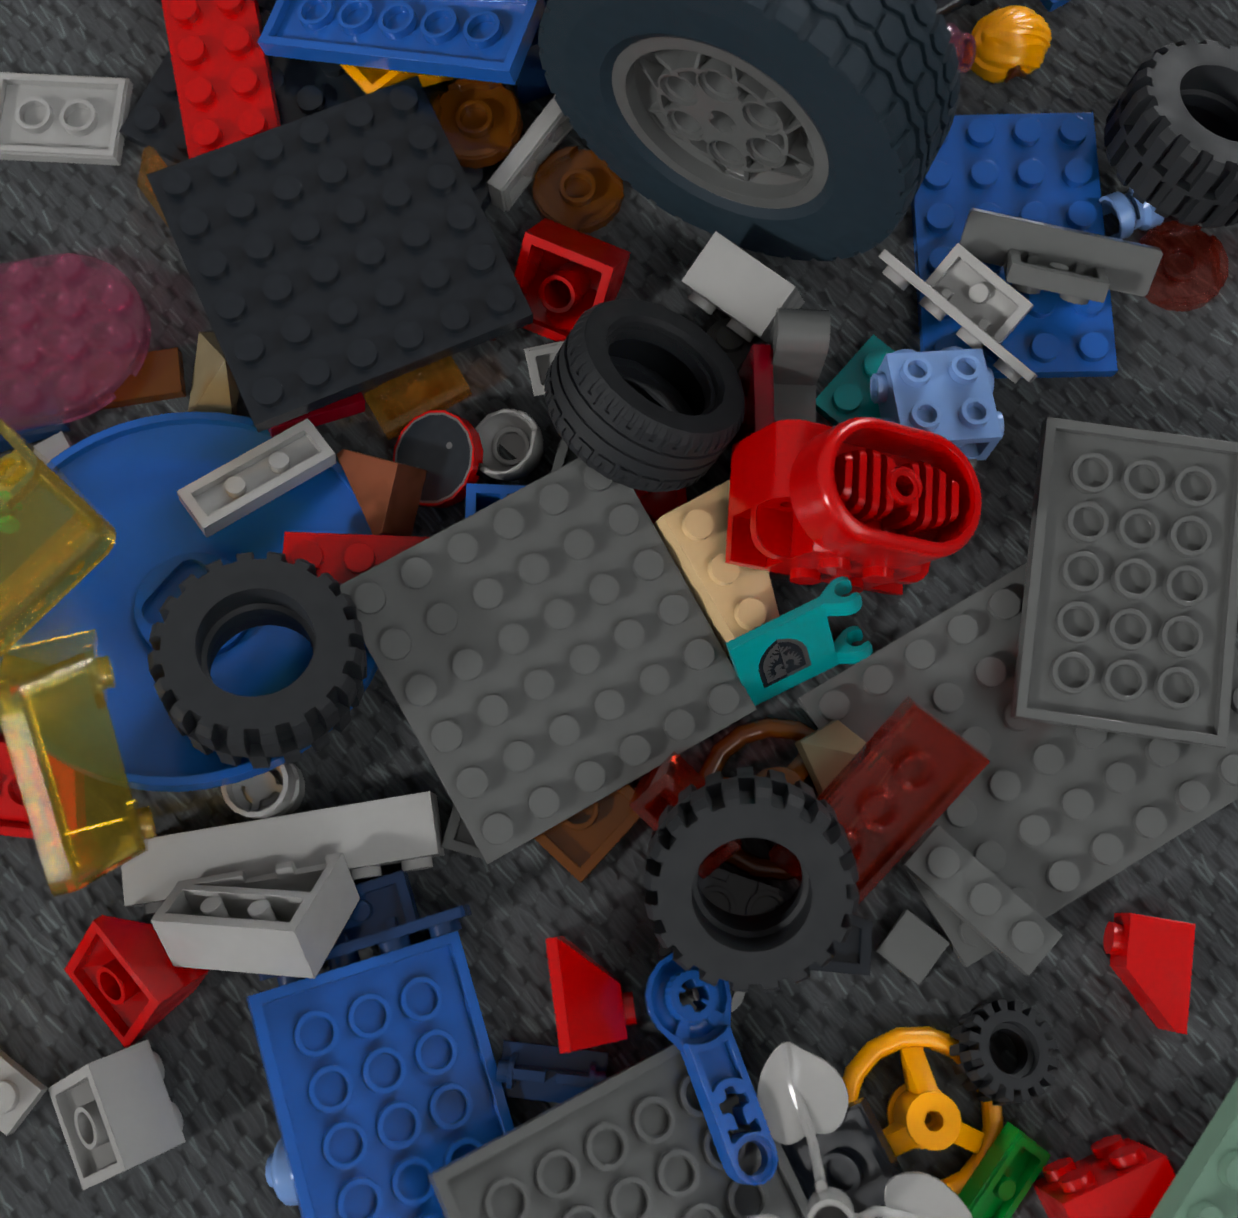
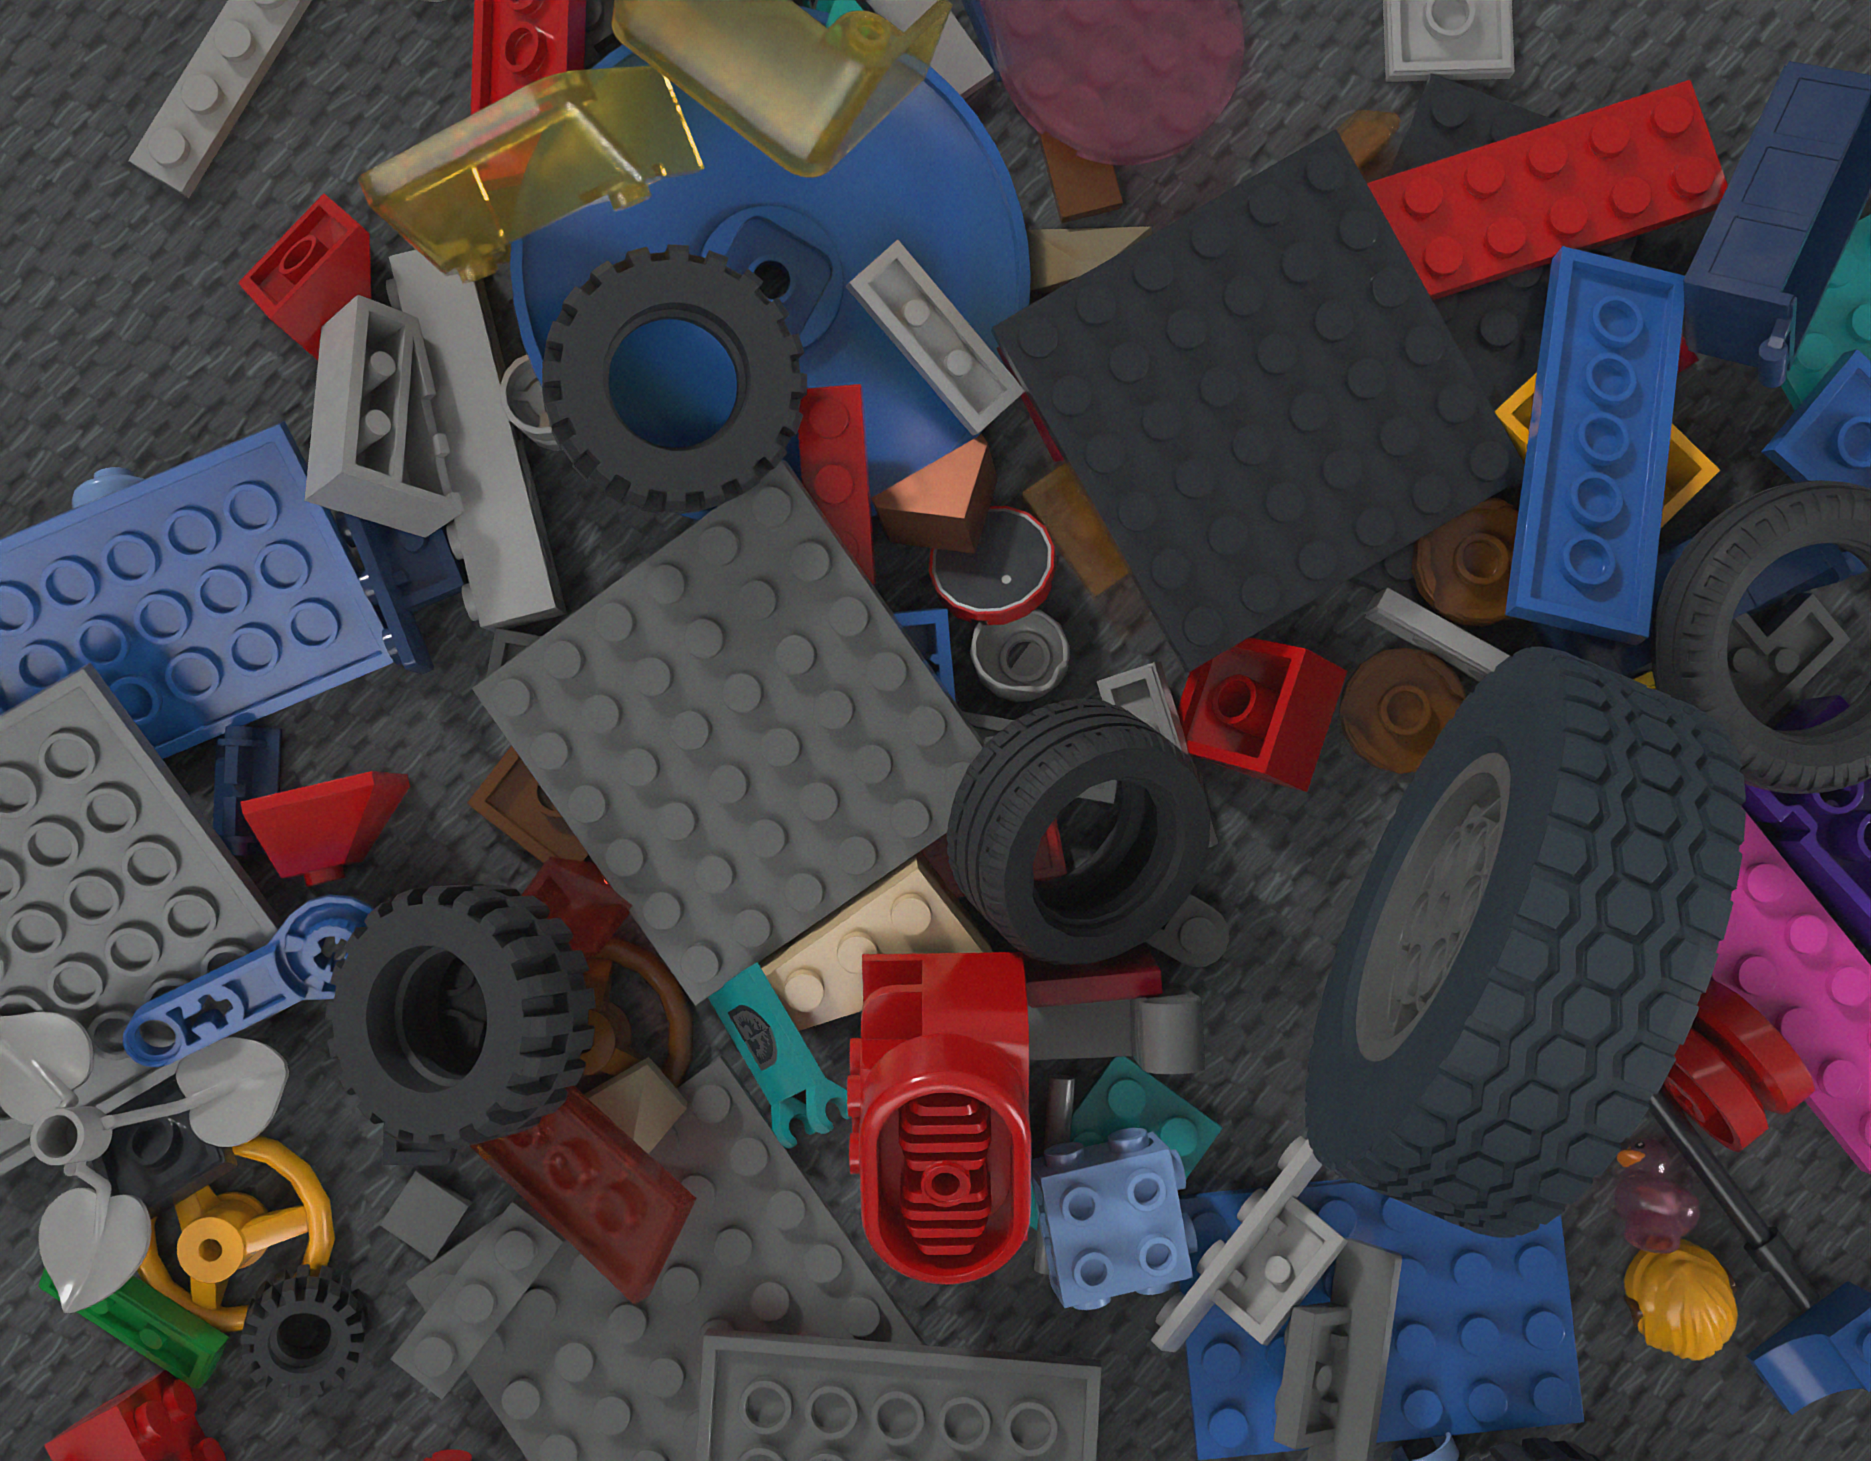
camera: 85 degrees right, 10 degrees up
(117, 1113) = (158, 287): light grey slope -> none
(739, 288) = (1257, 947): light grey slope -> none

